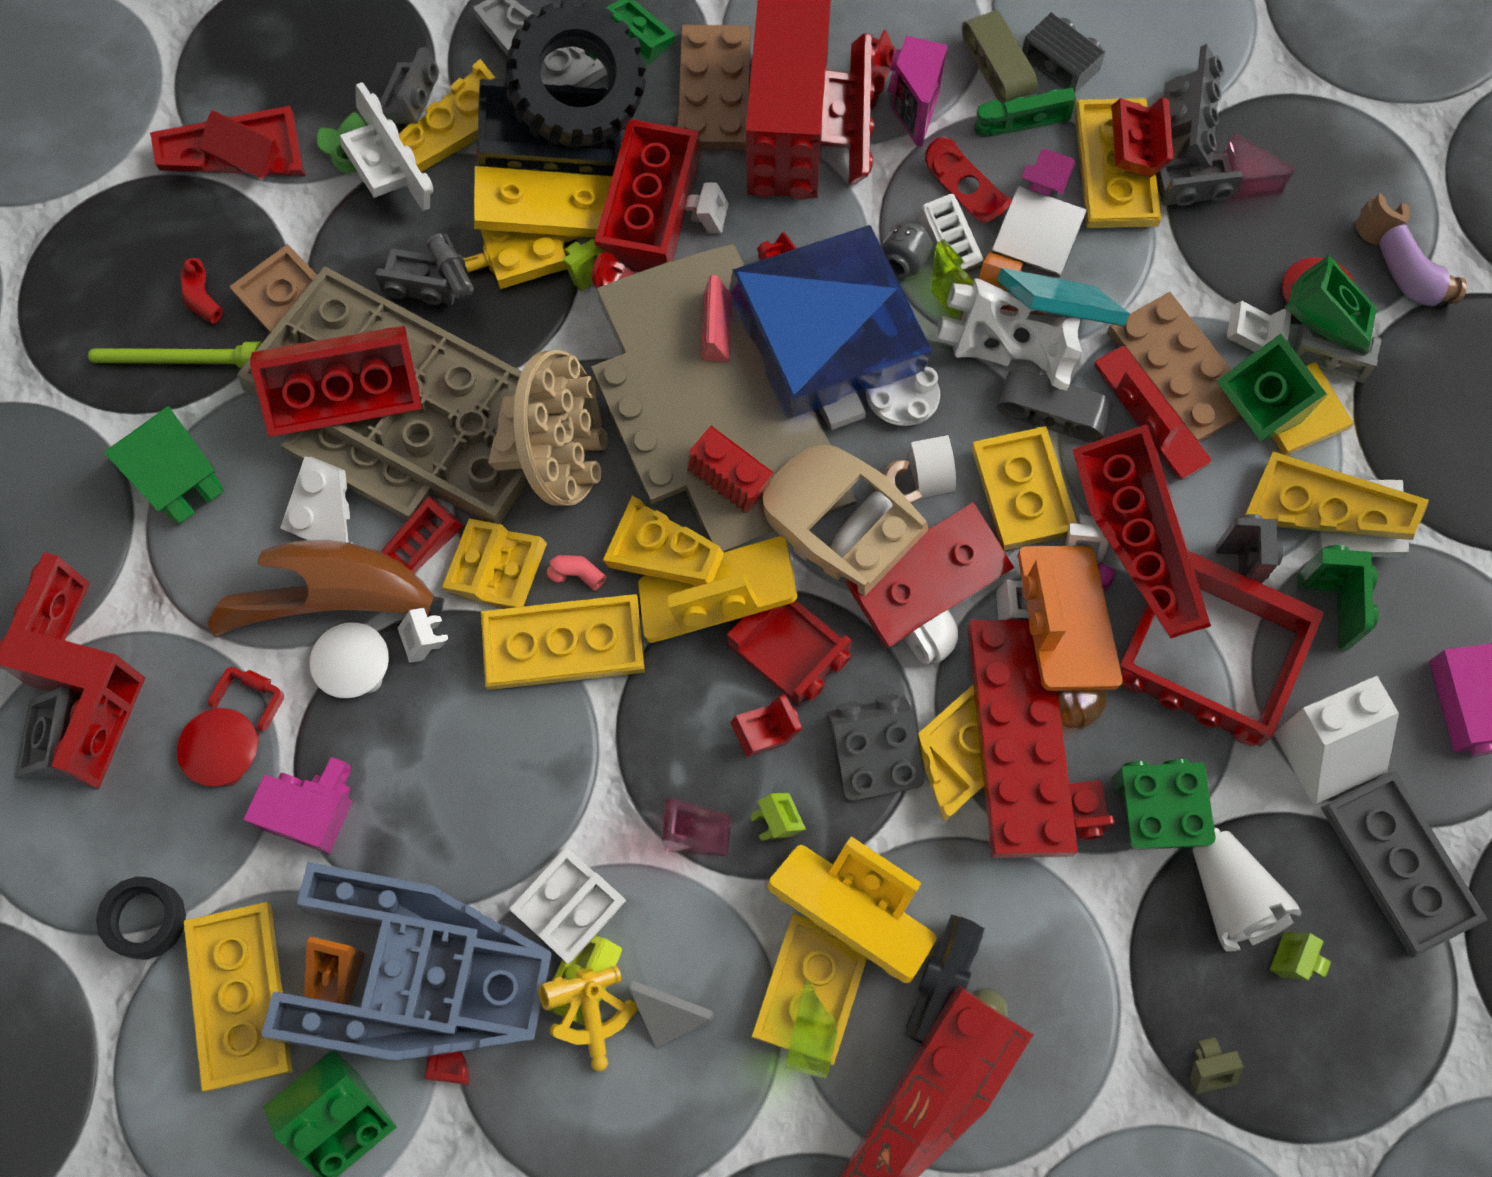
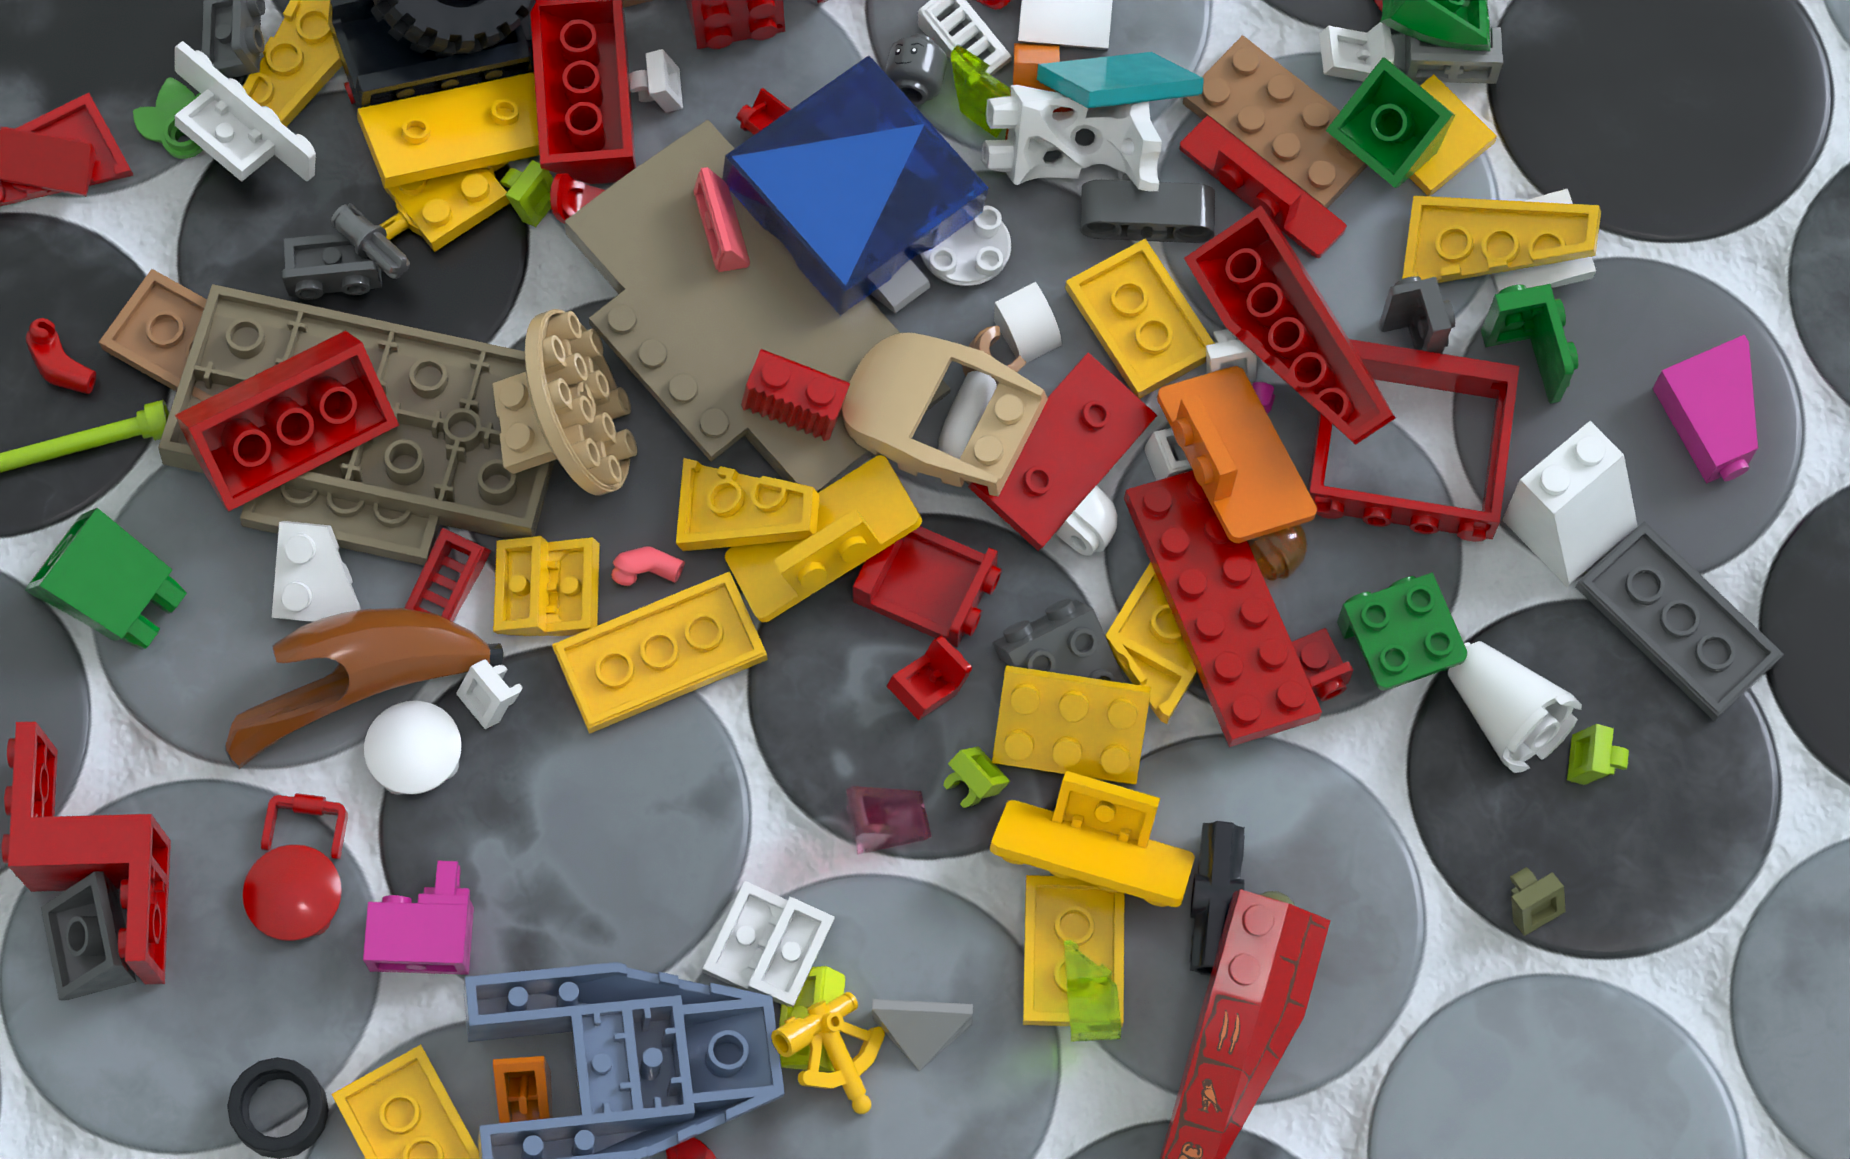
camera: 20 degrees left, 0 degrees up
(867, 799) = (1071, 724): none -> yellow plate

